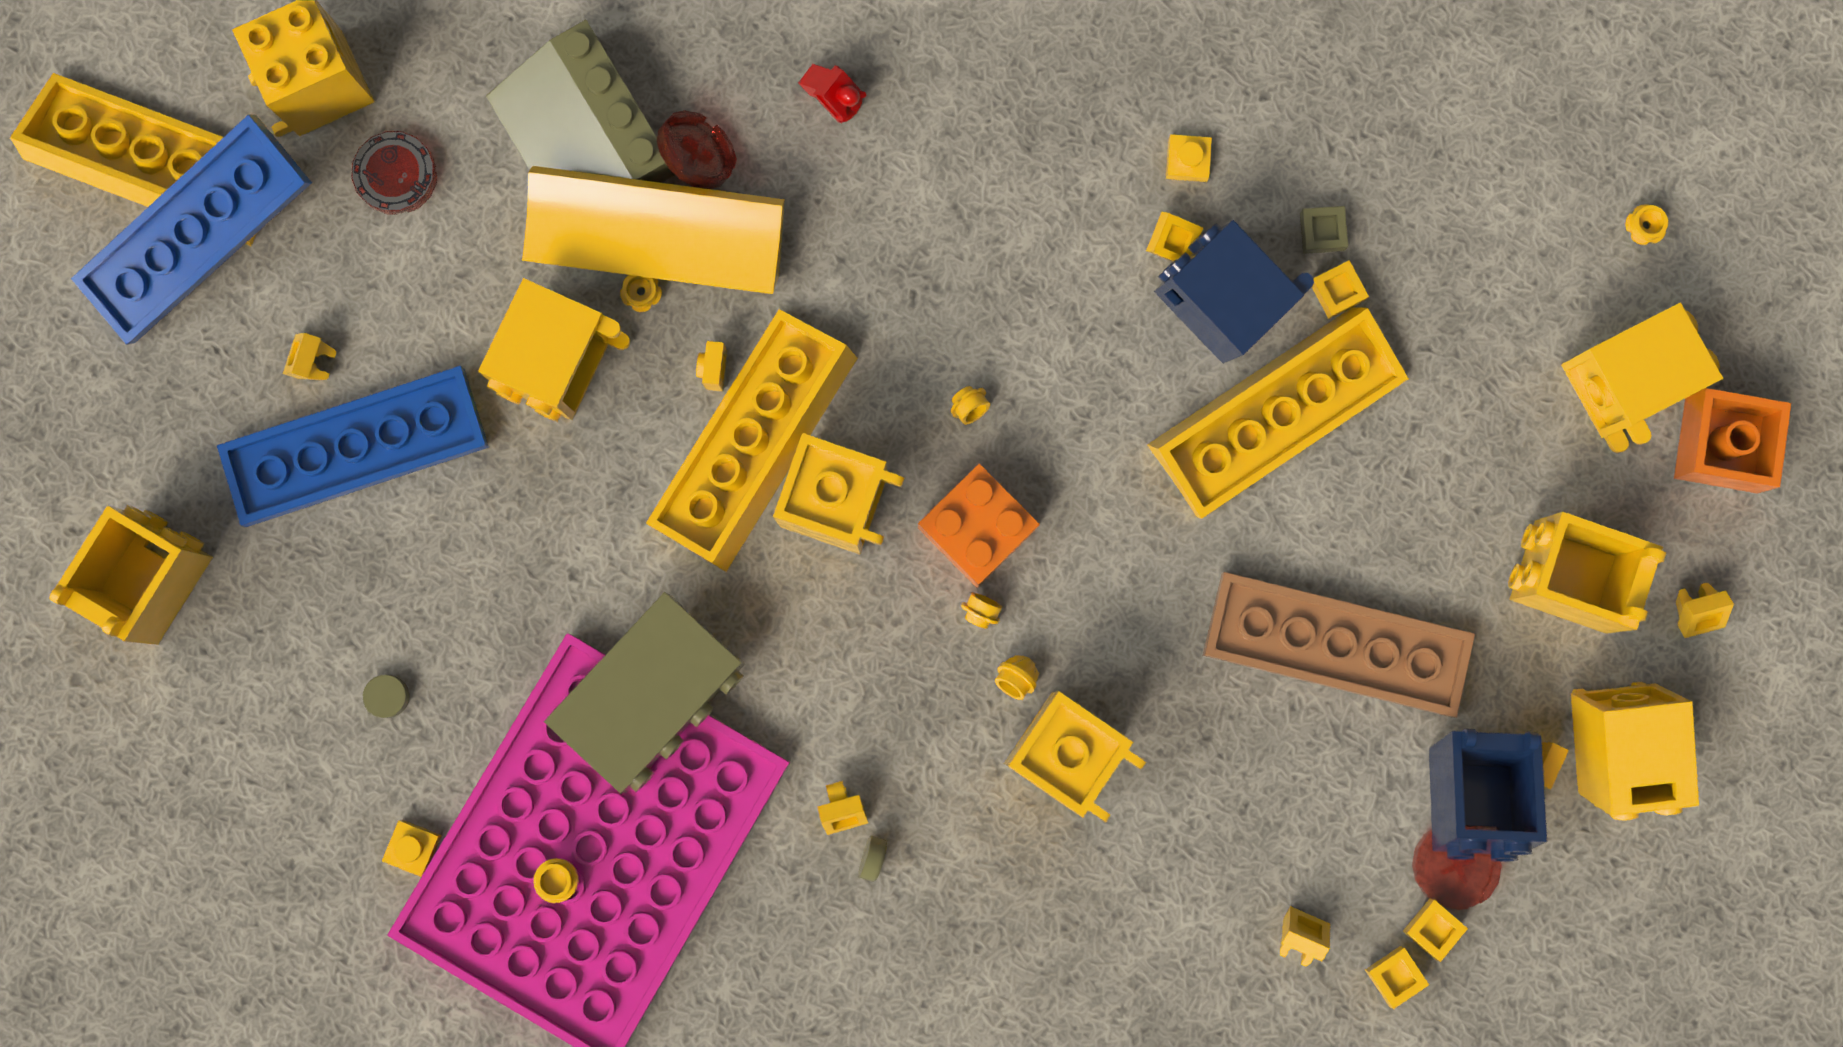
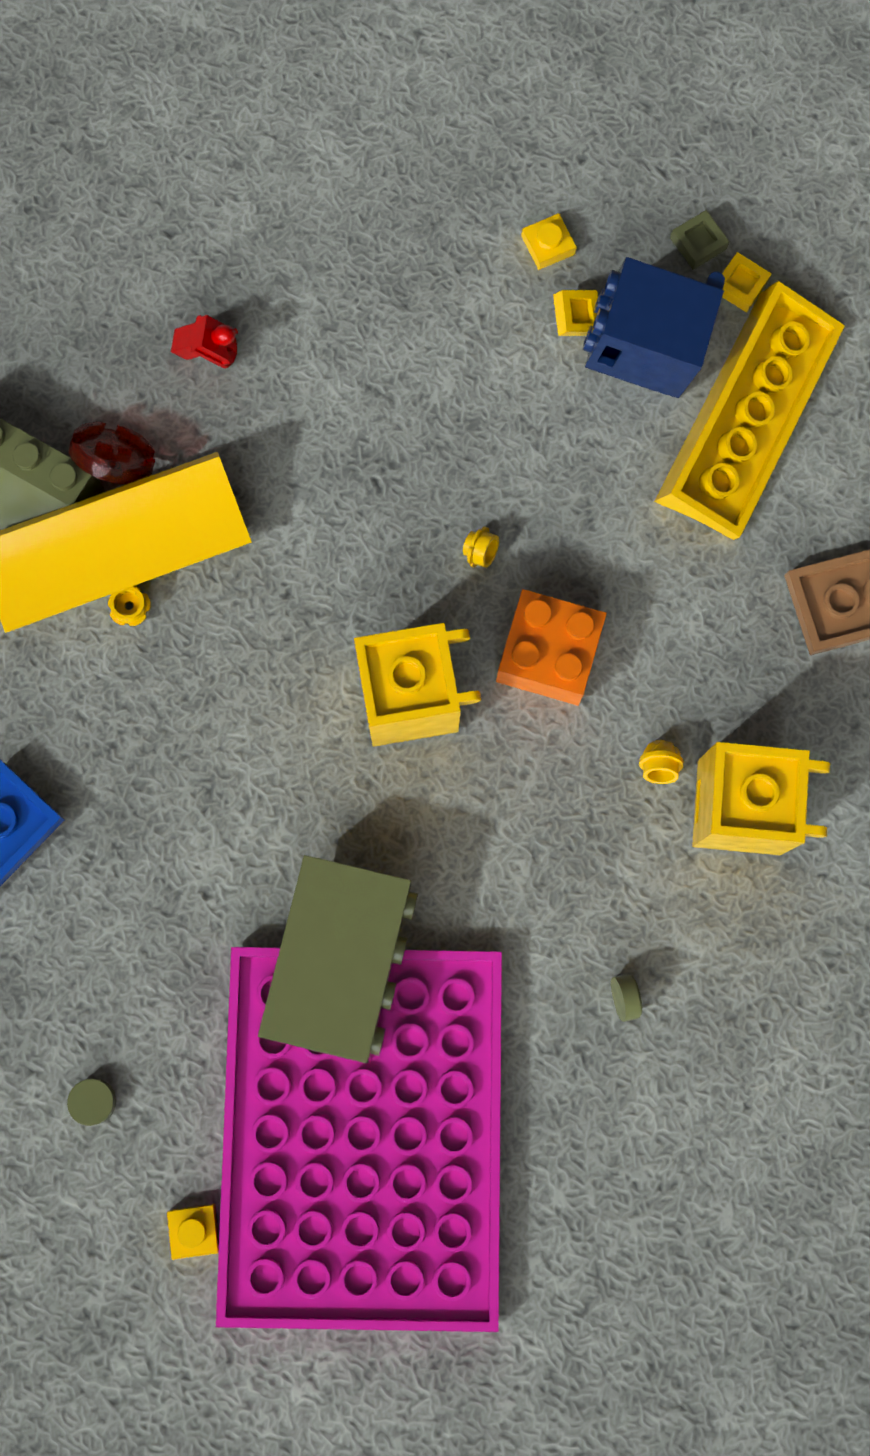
camera: 30 degrees left, 5 degrees down
(548, 351) = (75, 697): yellow container -> none
(556, 880) = (348, 1182): yellow plate -> none
(712, 366) = (231, 636): yellow plate -> none
(752, 439) = (303, 683): yellow arch -> none
(841, 812) = (575, 969): yellow tile -> none
(981, 610) = (595, 721): yellow plate -> none

